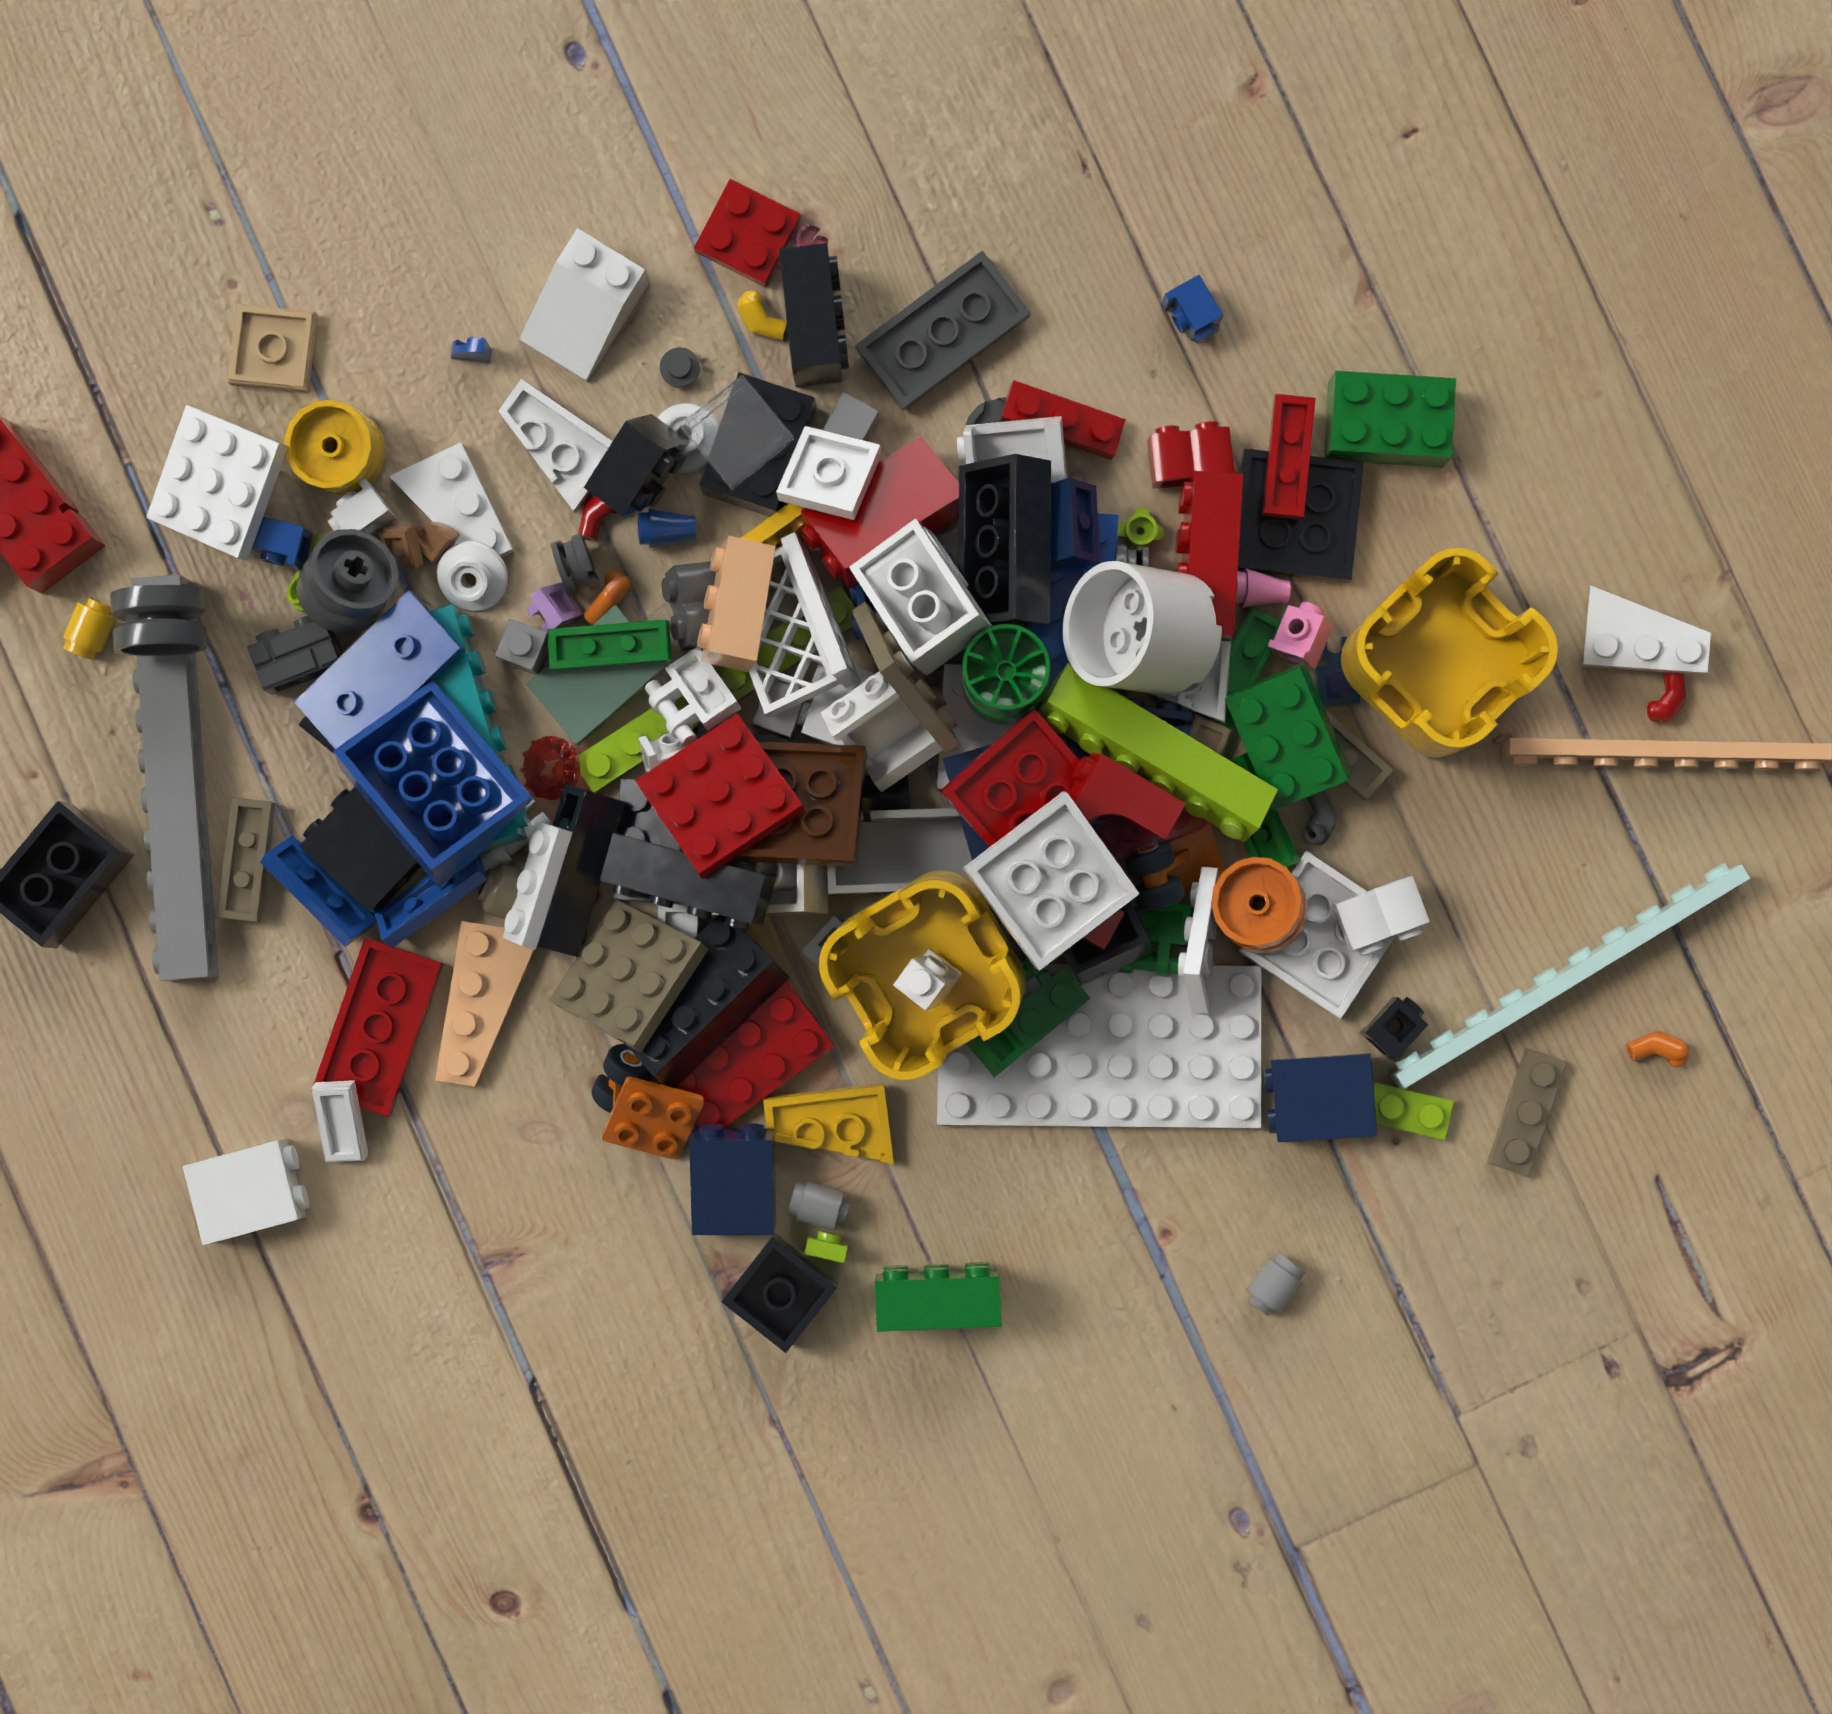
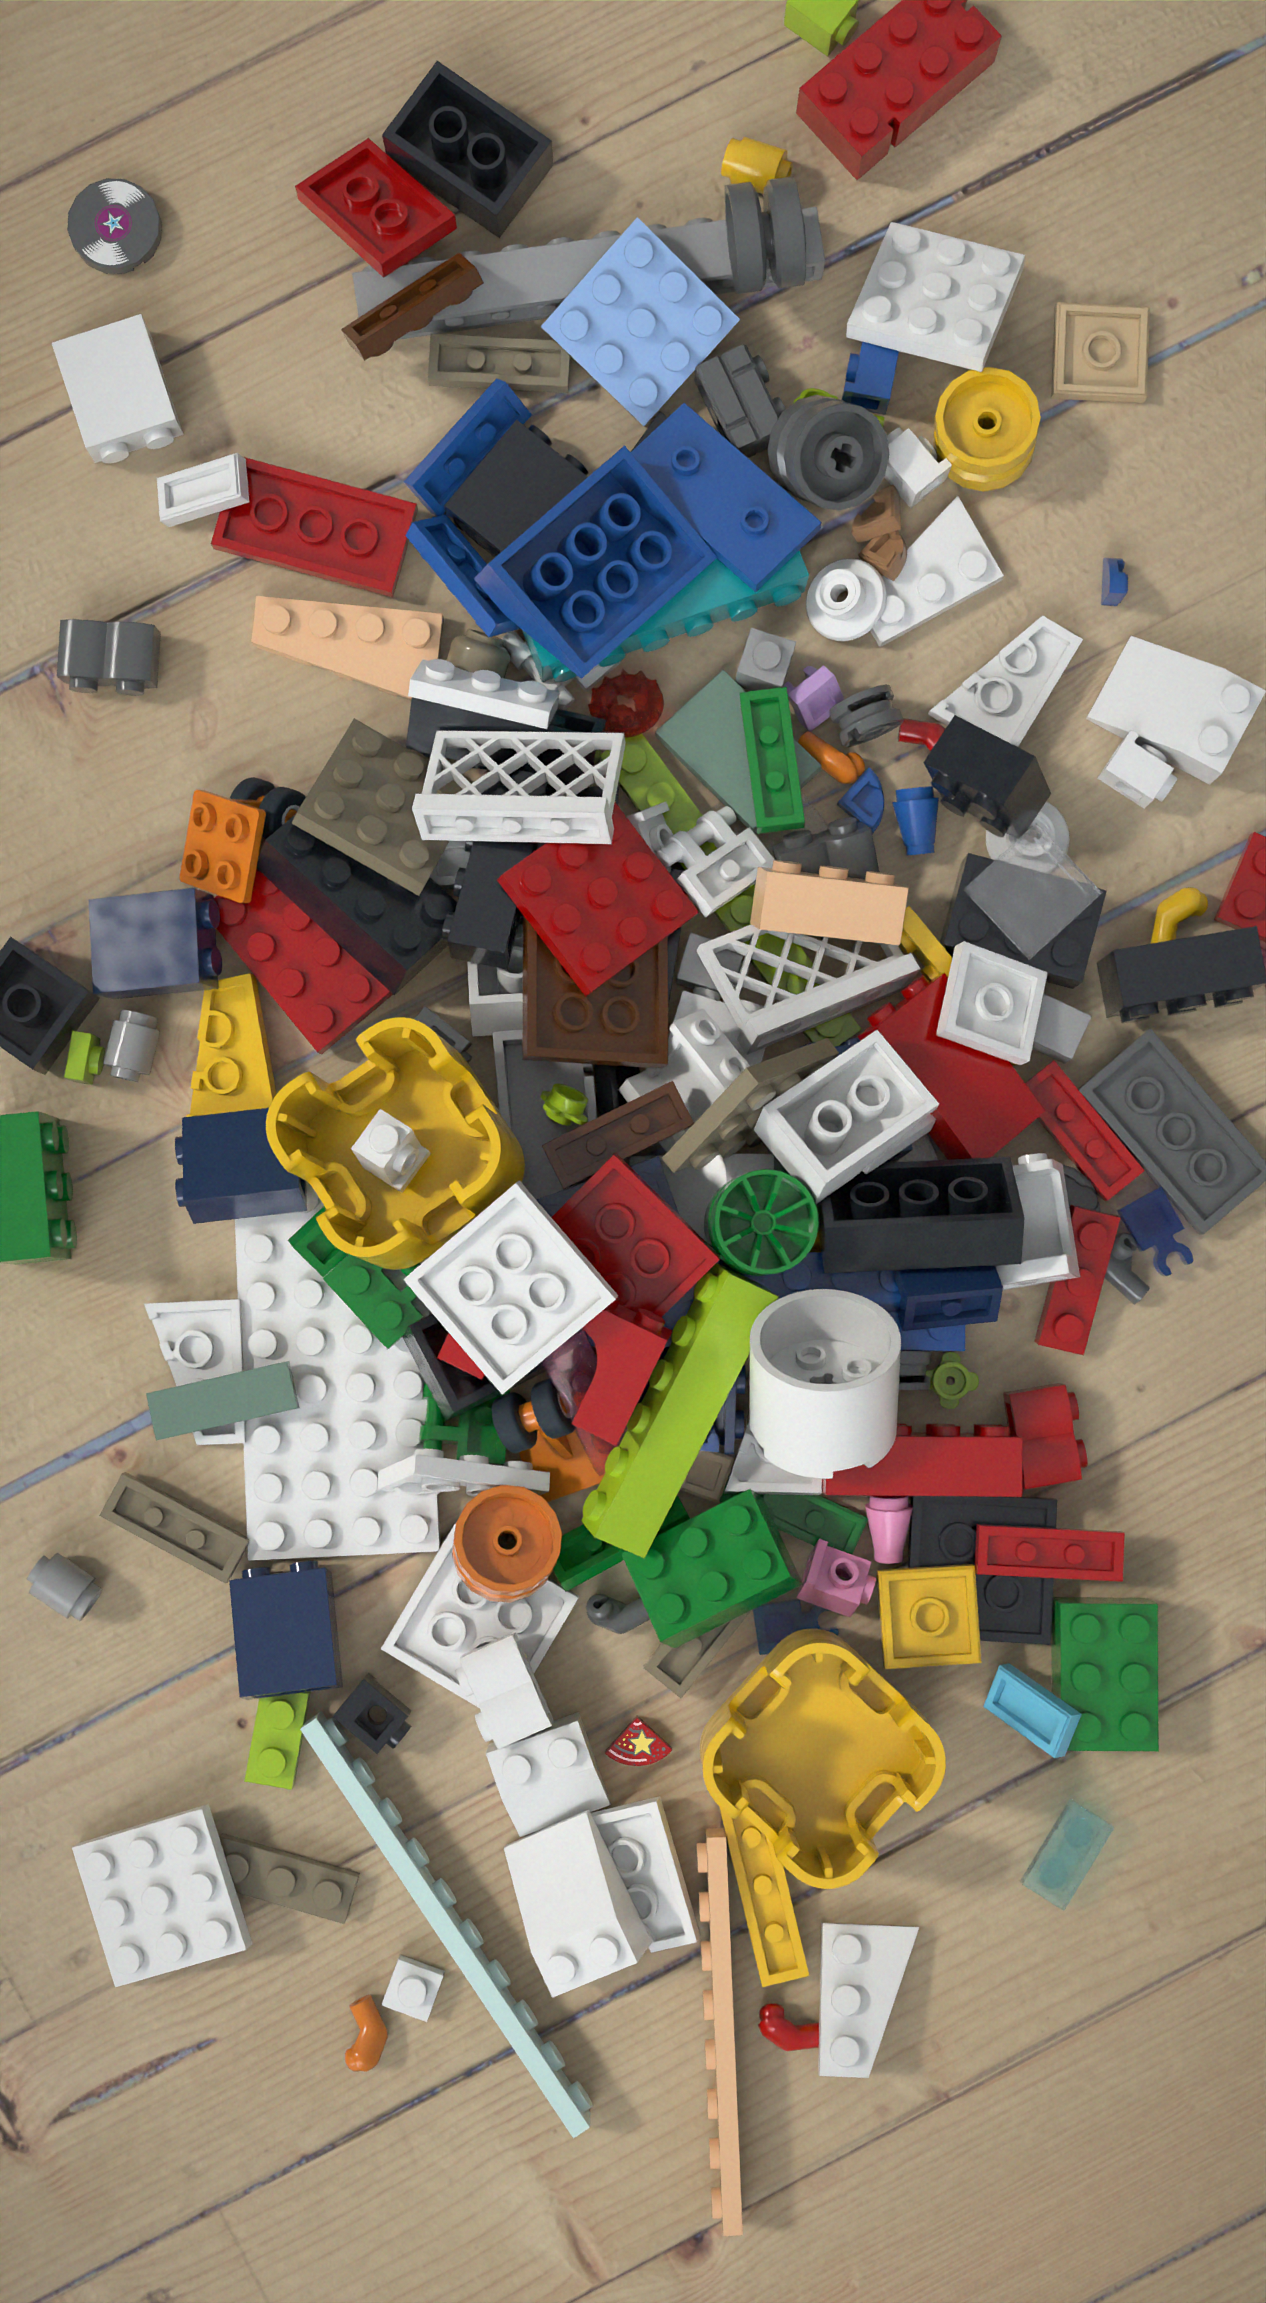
camera: 85 degrees right, 0 degrees up
(98, 1188) = (114, 226): none -> dark grey tile
(102, 957) = (376, 207): none -> red plate
(195, 928) = (412, 307): none -> reddish brown plate
(221, 735) = (640, 322): none -> light blue plate
(478, 1210) = (108, 655): none -> dark grey brick
(636, 340) = (1138, 772): none -> white brick
(645, 571) = (865, 800): none -> blue tile
(646, 859) = (516, 814): none -> white fence
(679, 367) = (1109, 824): dark grey plate -> none
(894, 834) = (565, 1105): none -> lime plate
(921, 791) = (622, 1131): none -> reddish brown plate
(928, 1118) = (233, 1169): none -> dark blue brick
(939, 407) = (1082, 1132): none -> red plate
(1019, 354) = (1153, 1224): none -> clear blue plate
(1056, 384) = (1120, 1271): none -> dark grey arm
(1094, 1154) = (200, 1344): none -> white wing
(1126, 1141) = (222, 1400): none -> sand green tile
(1193, 309) = (1221, 1430): blue brick -> none
(1230, 1188) = (175, 1527): none -> dark tan plate
(1336, 560) = (929, 1616): none -> yellow tile
(1417, 479) = (1032, 1710): none -> medium azure tile
(1430, 809) = (638, 1745): none -> red tile
(1453, 883) = (548, 1776): none -> white slope
(1527, 811) = (650, 1869): none -> white wing
(1536, 460) = (1067, 1854): none -> clear light blue plate
(1537, 1213) = (162, 1896): none -> white plate
(1559, 867) = (574, 1904): none -> white slope
(1562, 710) = (765, 1903): none -> yellow plate
(1621, 1007) = (413, 1988): none -> white plate

